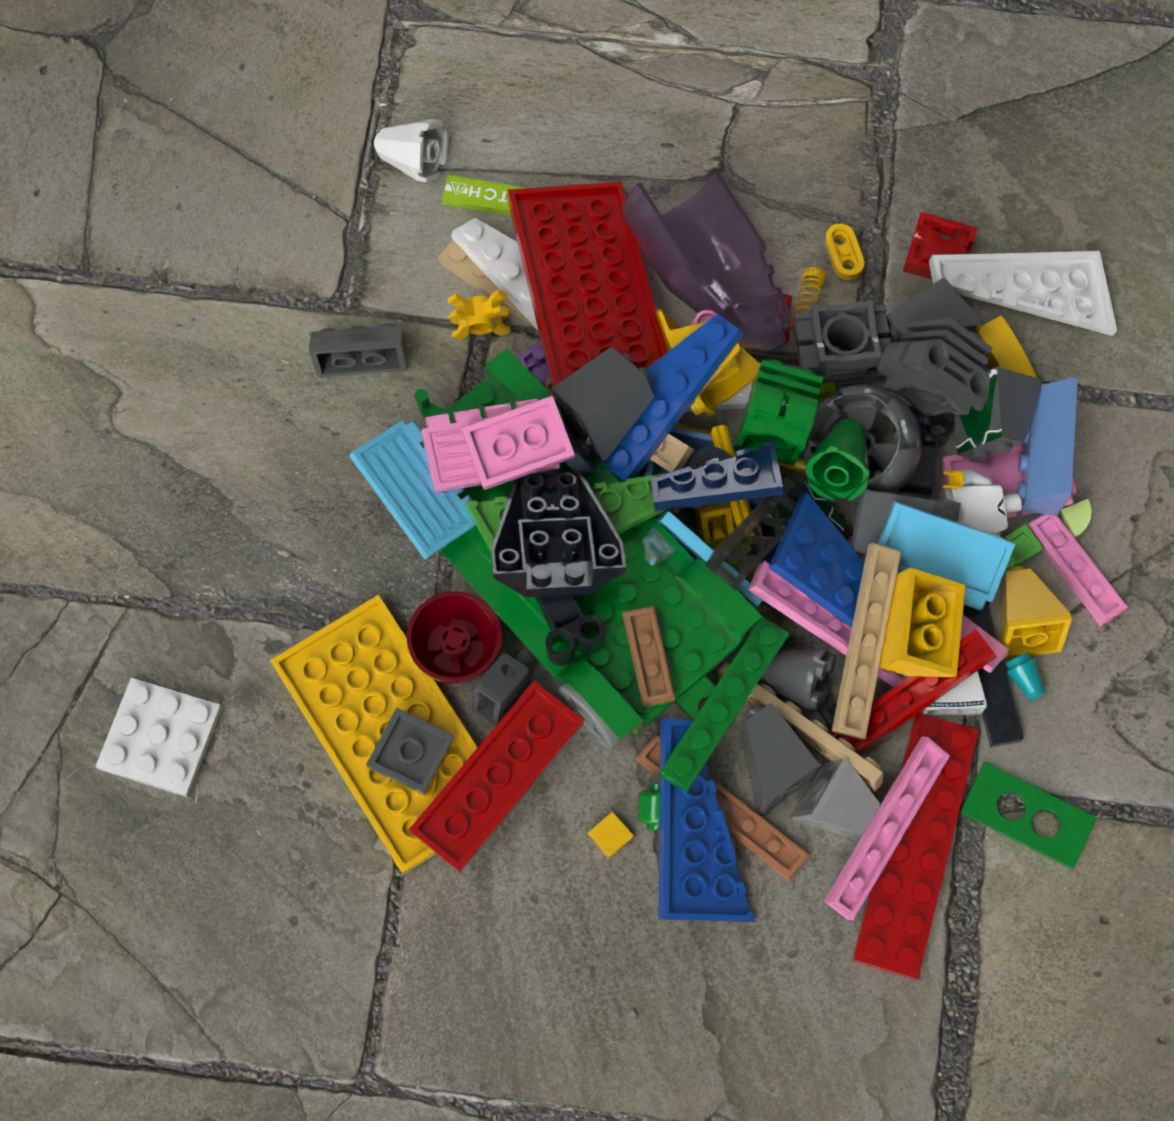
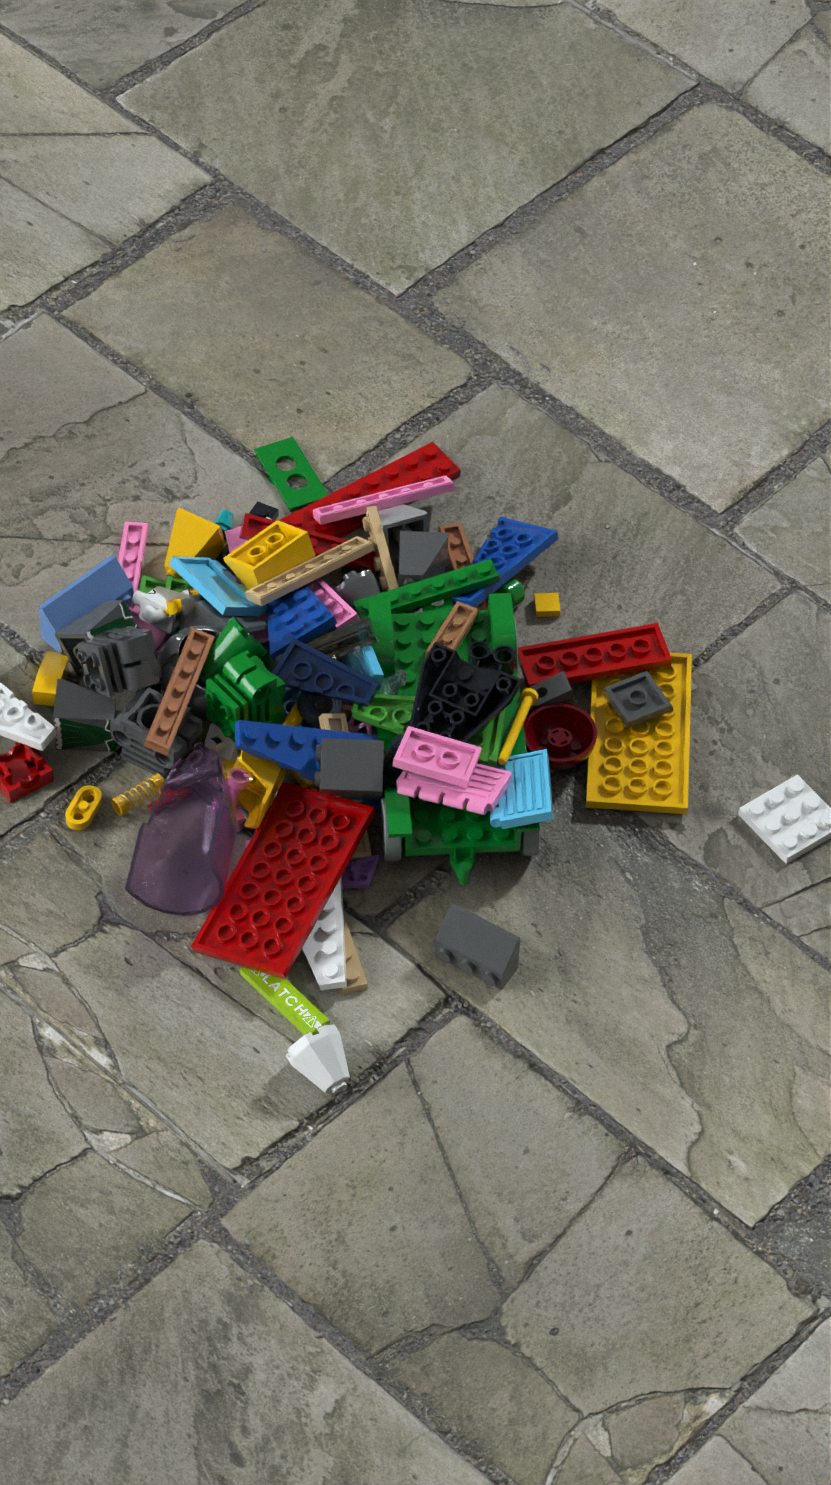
camera: 145 degrees left, 20 degrees down
(479, 315) = (375, 912): yellow pin -> none
(490, 584) = (528, 698): none -> yellow bar
(845, 364) = (179, 691): none -> nougat tile

